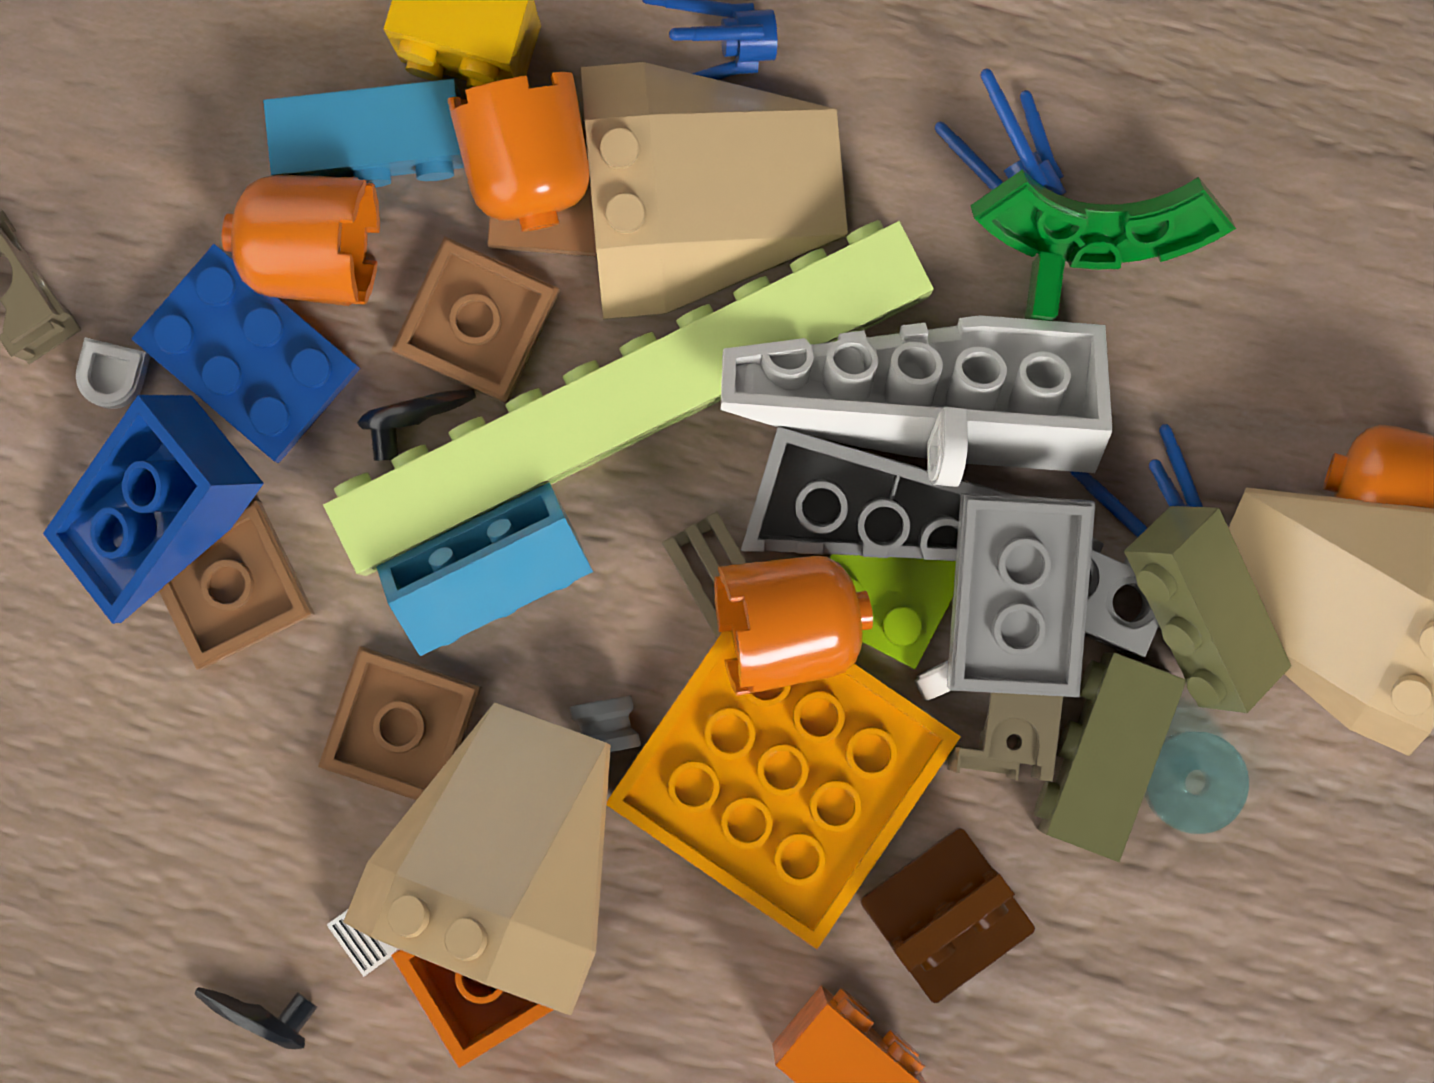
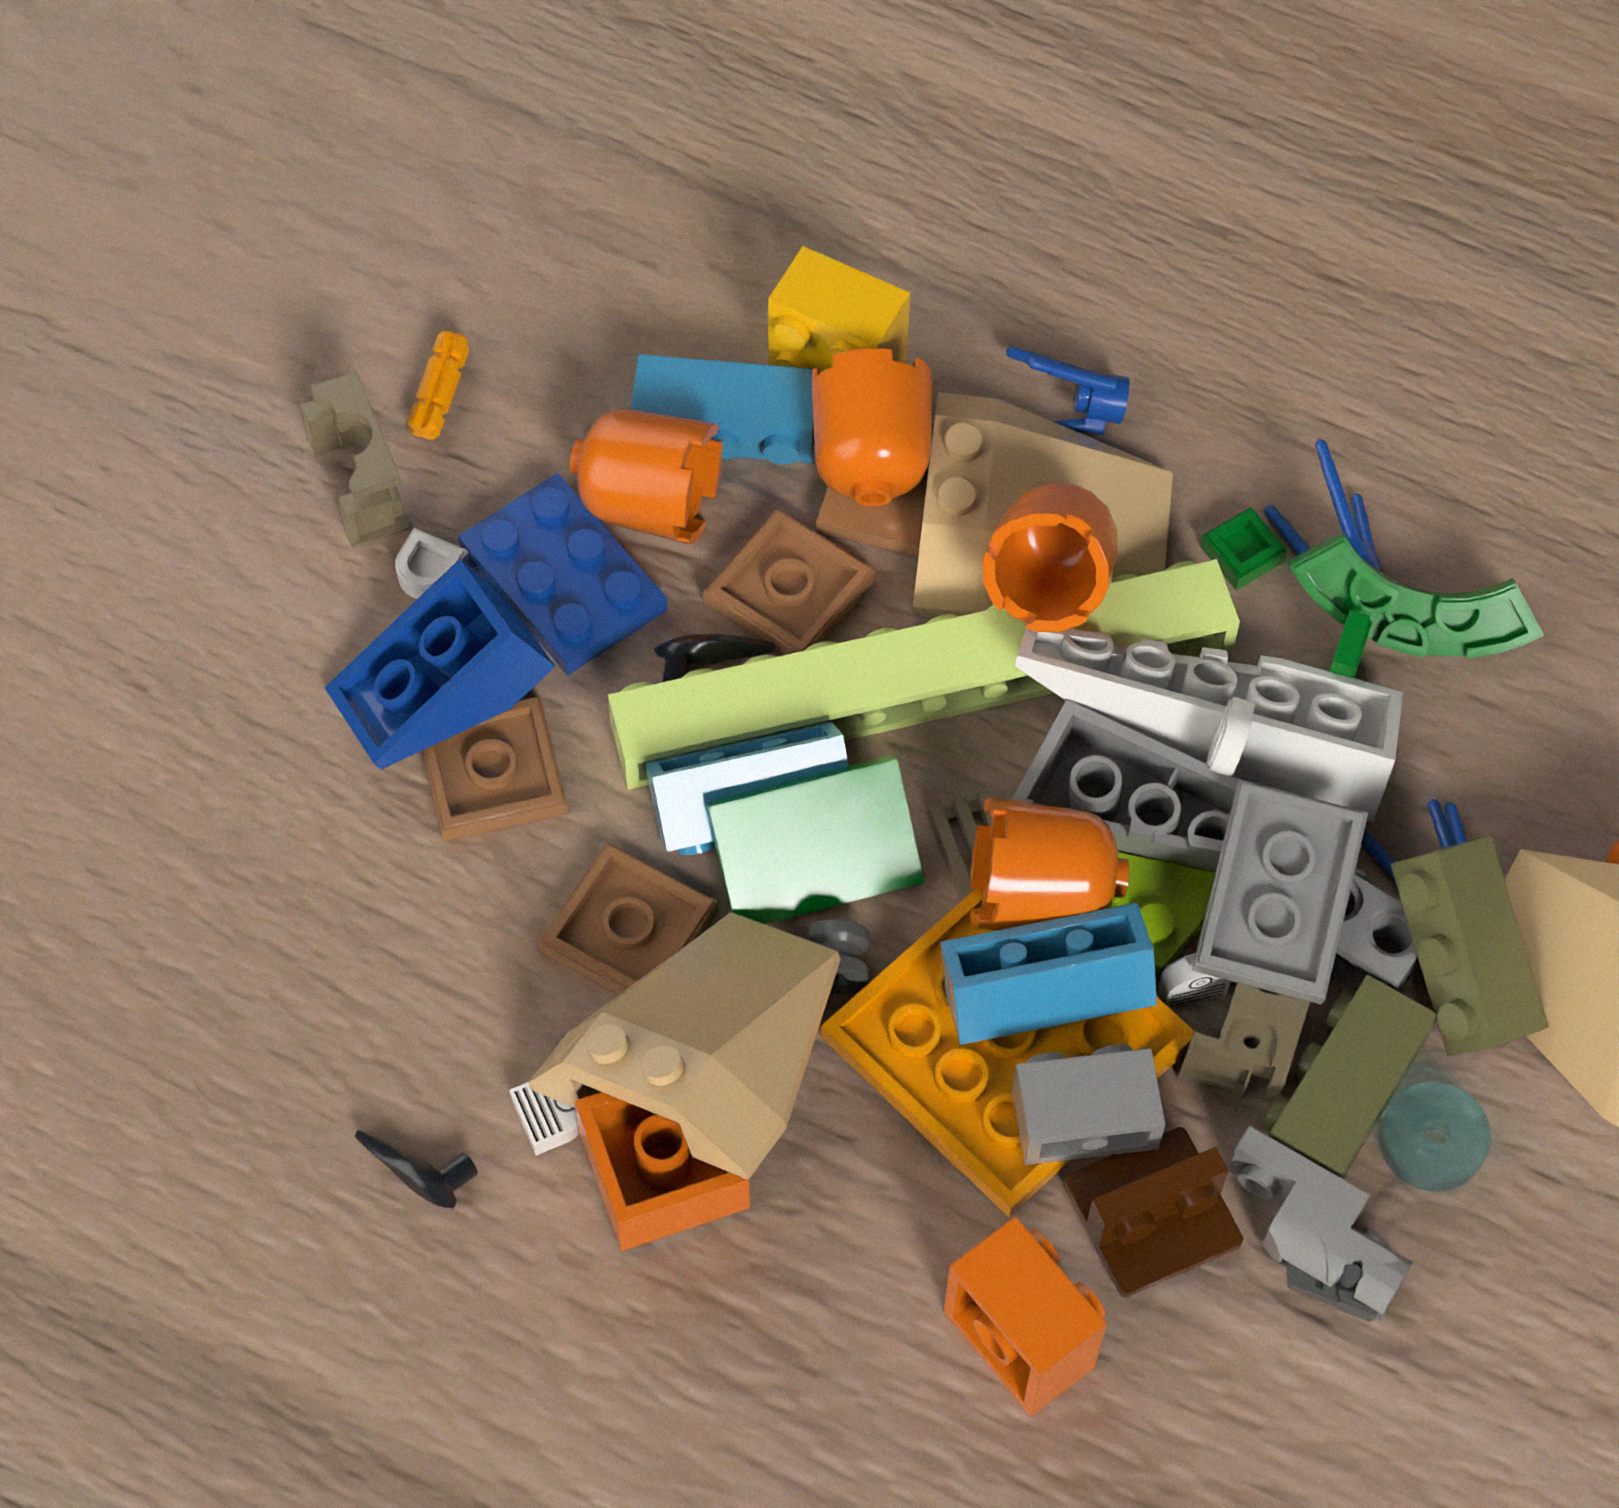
camera: 10 degrees right, 25 degrees down
(67, 161) = (438, 385): none -> light orange axle
(559, 616) = (816, 841): none -> tile
(736, 278) = (1052, 557): none -> orange cylinder
(811, 729) = (1049, 973): none -> dark azure brick
(872, 846) = (1088, 1104): none -> light grey brick
(921, 179) = (1244, 548): none -> green tile
(1103, 913) = (1317, 1230): none -> light grey plate

